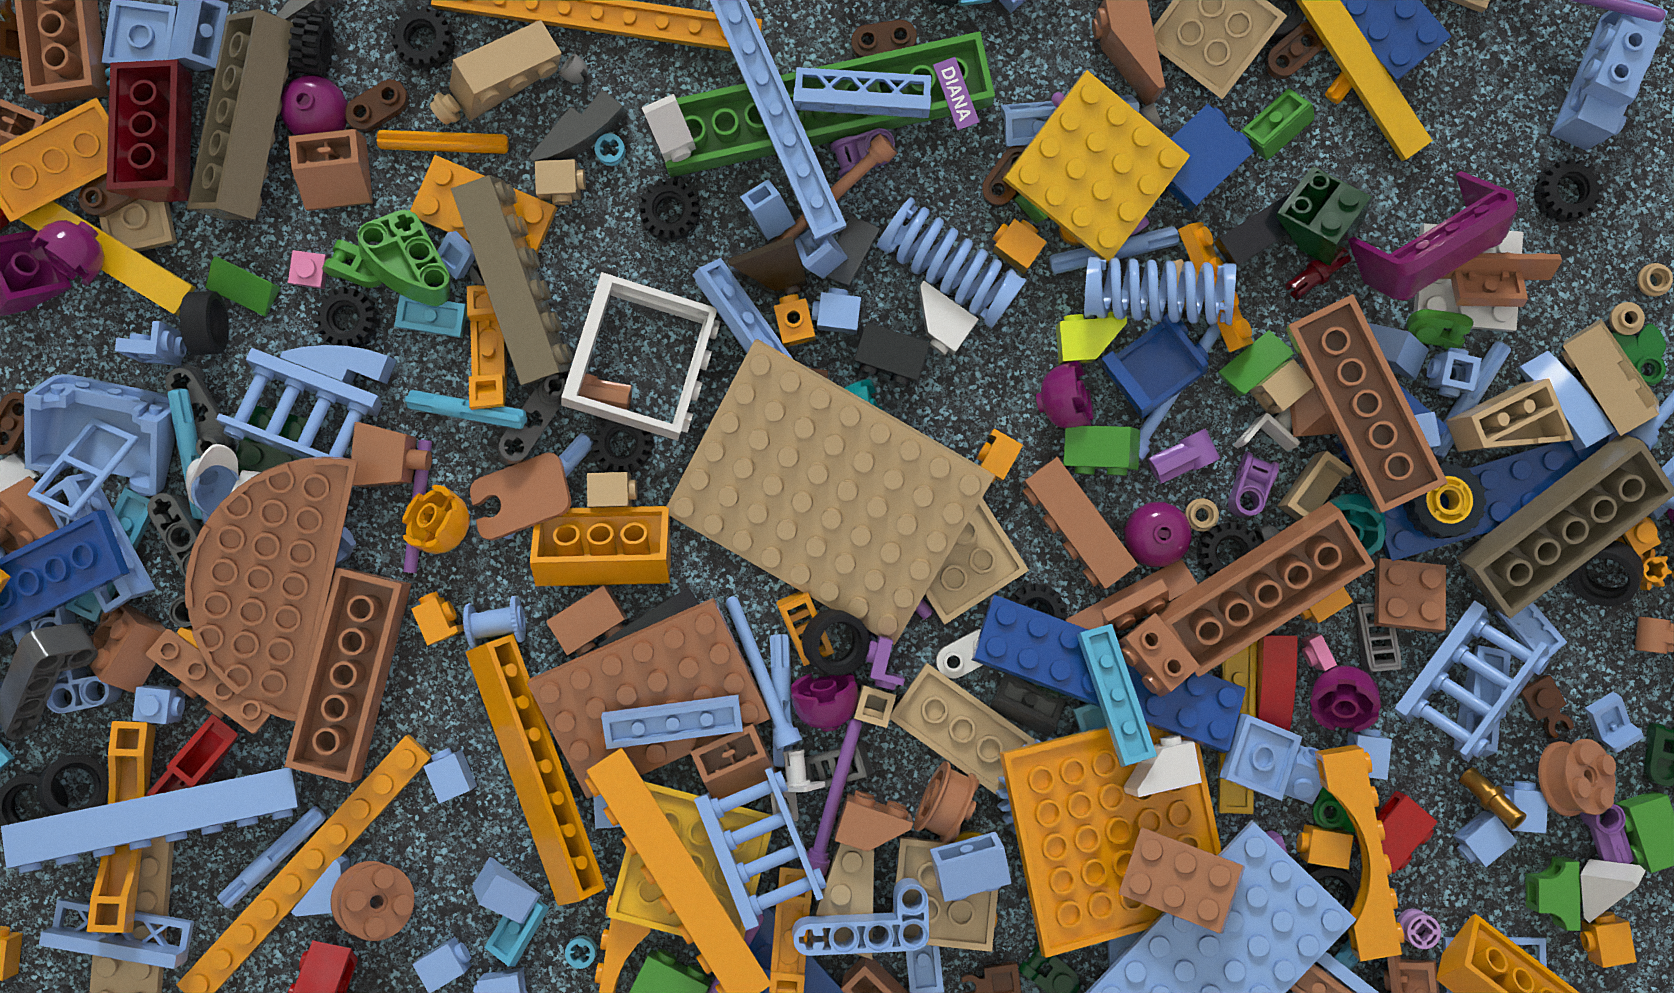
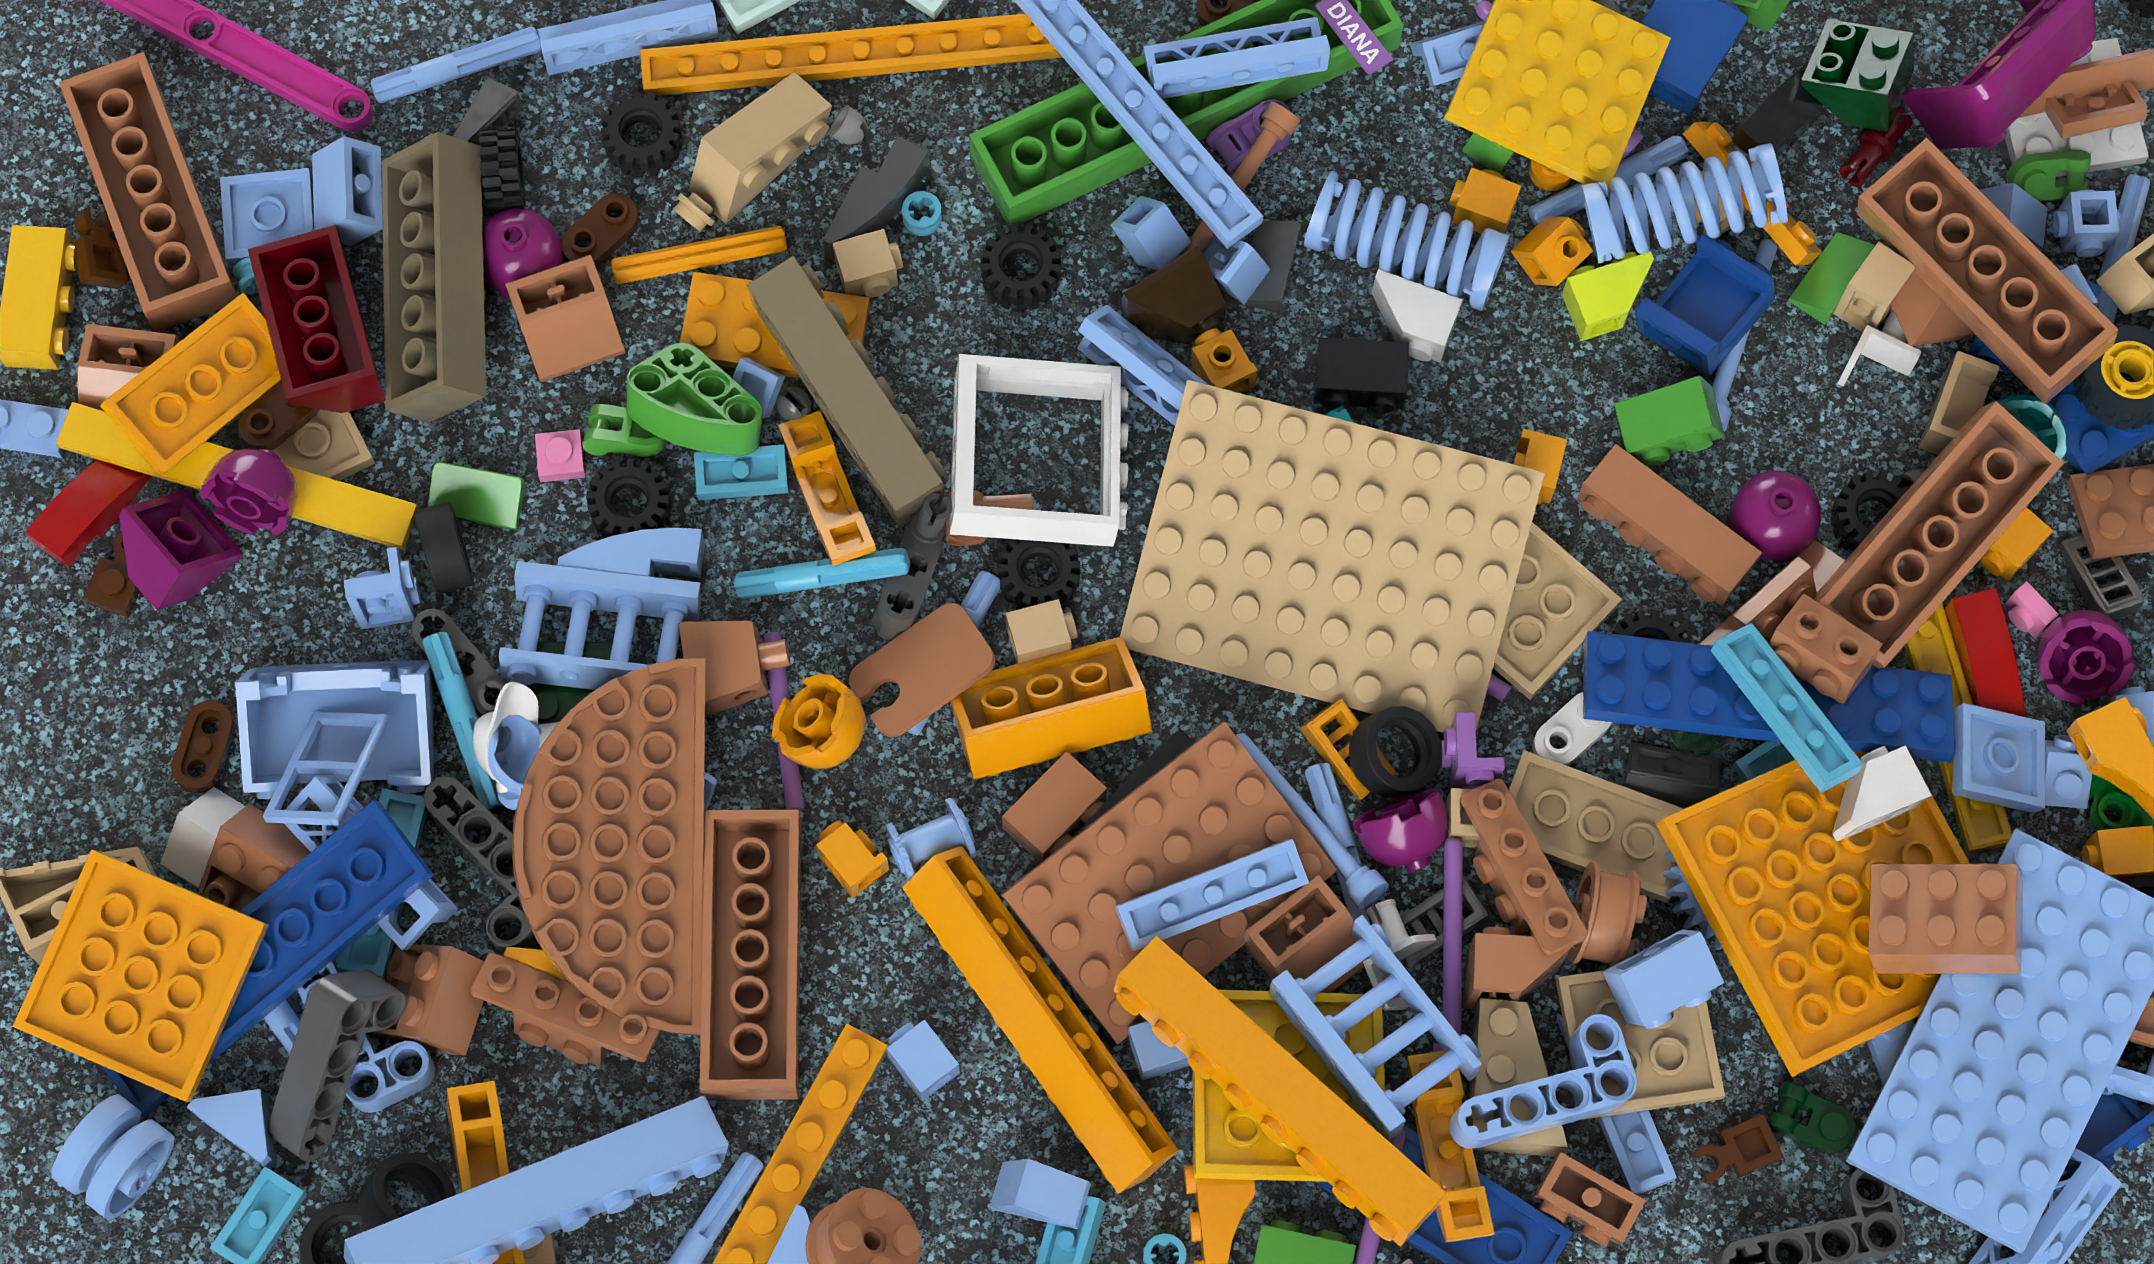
camera: 20 degrees left, 15 degrees down
(158, 704) = (500, 1059): light blue brick -> none
(198, 757) = (573, 1111): red slope -> none
(669, 129) = (1005, 151): white slope -> none
(837, 311) = (1276, 339): light blue brick -> none
(894, 760) = (1519, 871): none -> nougat bracket
(995, 178) = (1439, 130): reddish brown plate -> none
(1056, 295) = (1552, 250): none -> light orange brick
(1065, 396) = (1601, 369): magenta cylinder -> none
(1189, 454) = (1785, 403): medium lavender piece -> none
(1211, 514) = (1830, 468): tan plate -> none
(1255, 479) = (1876, 418): medium lavender piece -> none

